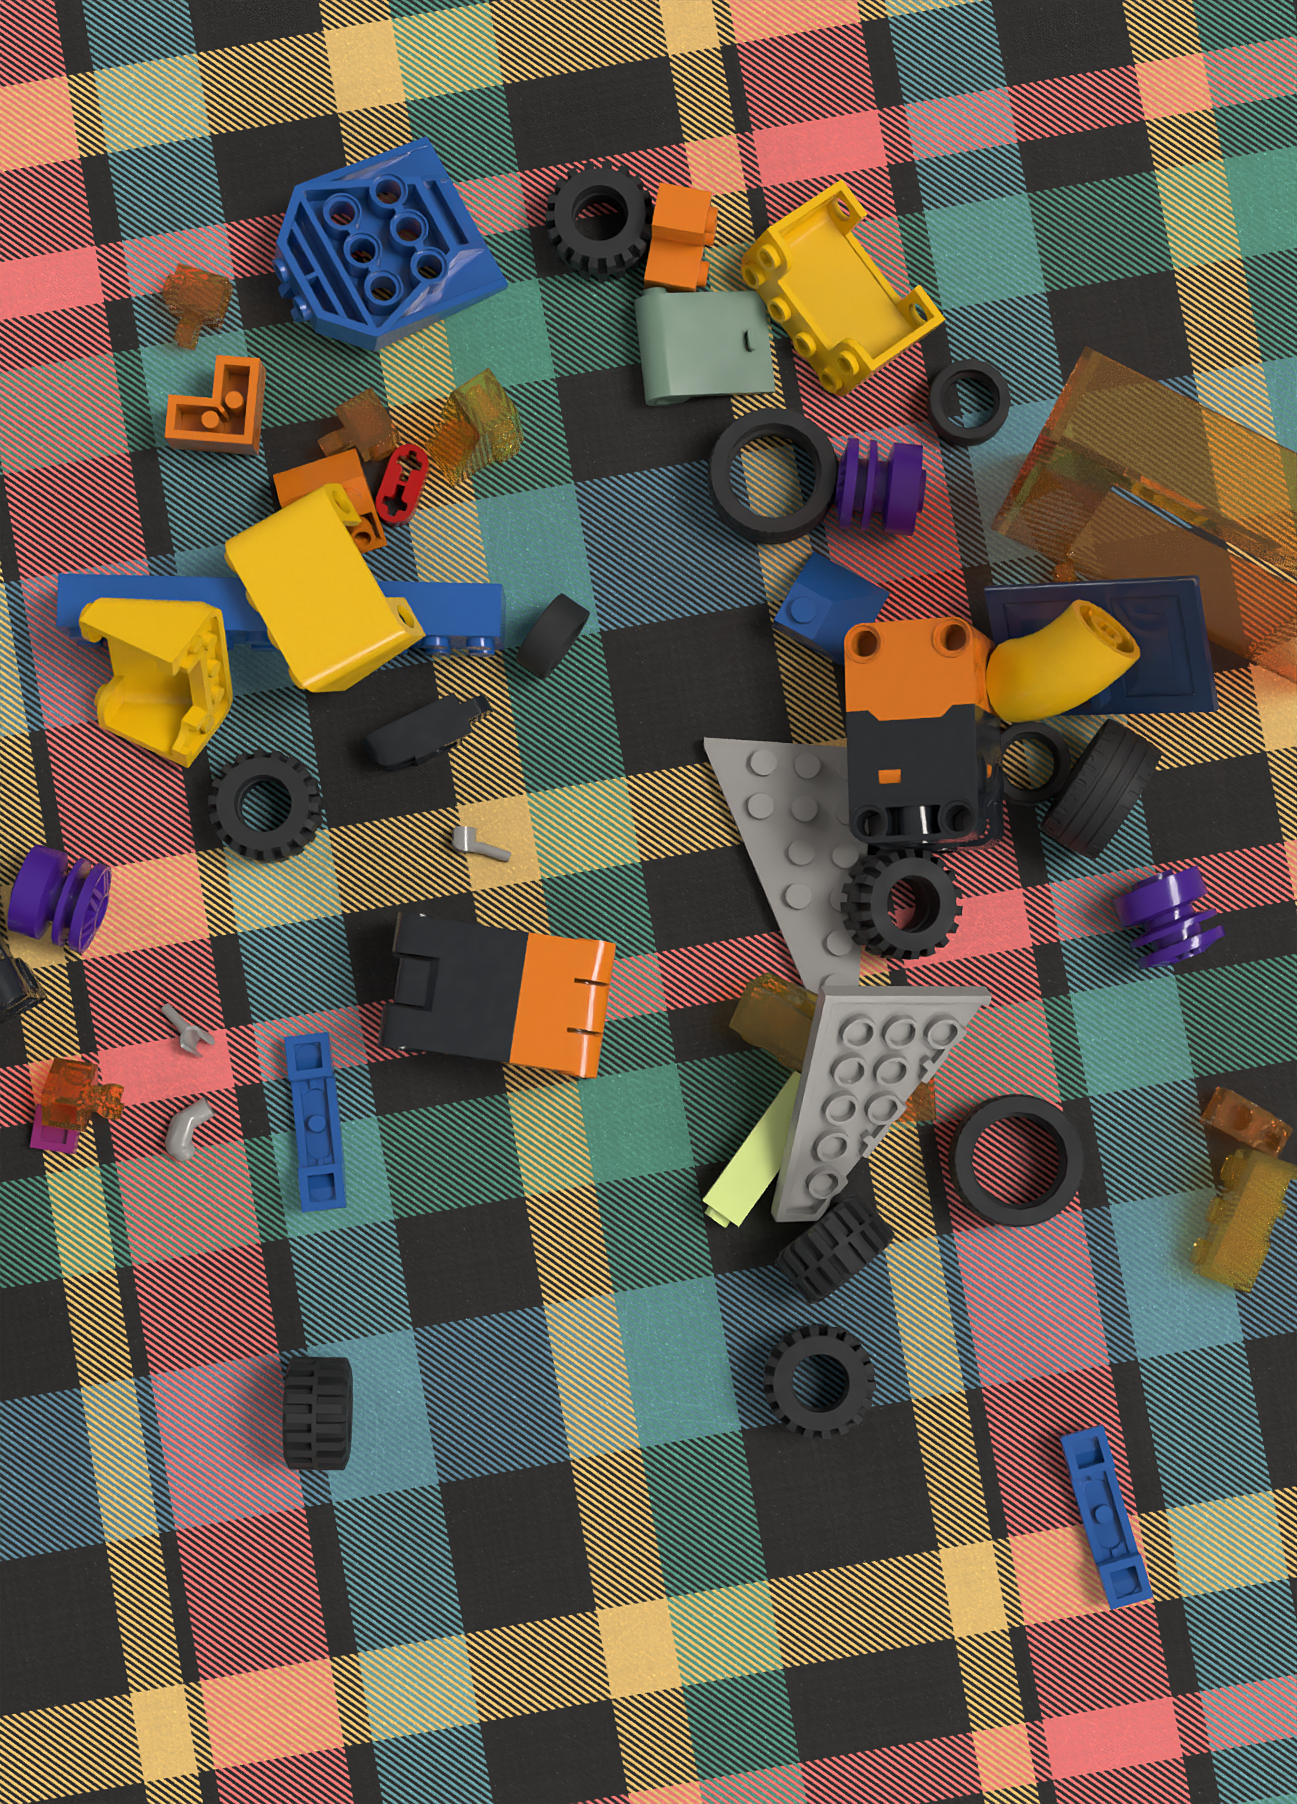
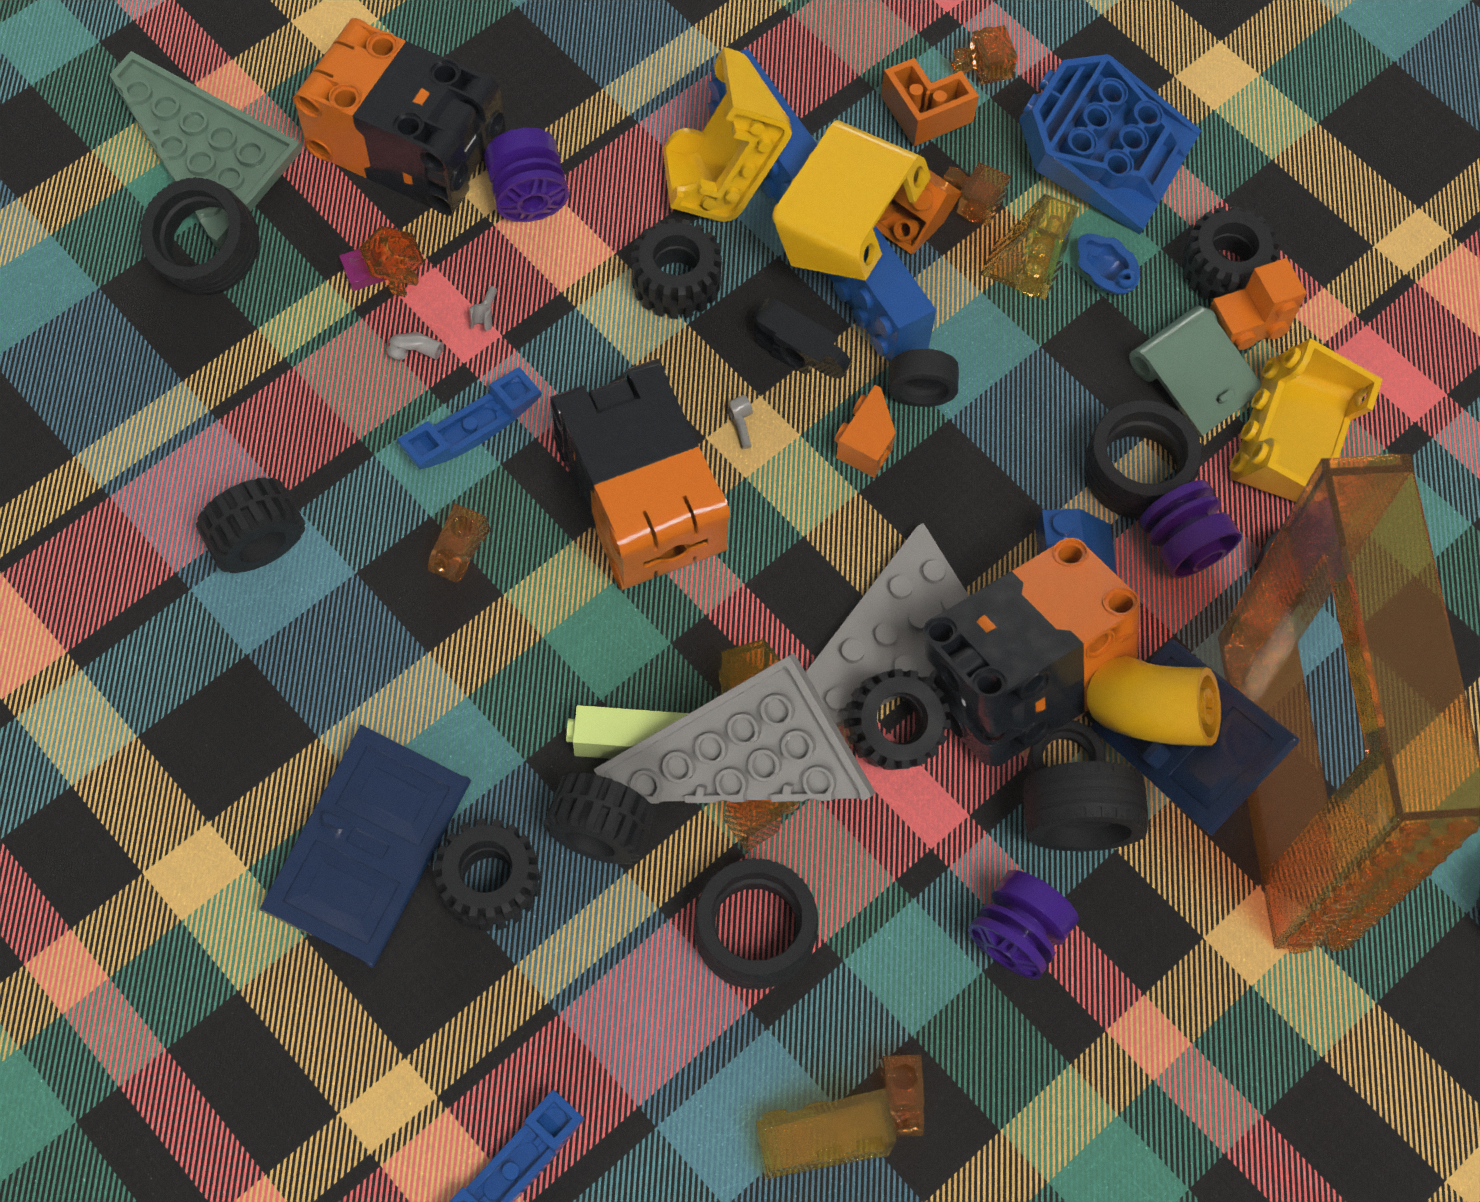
camera: 50 degrees right, 20 degrees down
(393, 481) = (958, 240): red beam -> none
(450, 1213) = (458, 543): none -> clear orange leg
(530, 352) = (1108, 263): none -> blue arm
(577, 727) = (869, 435): none -> orange slope
(716, 1475) = (366, 846): none -> dark blue door

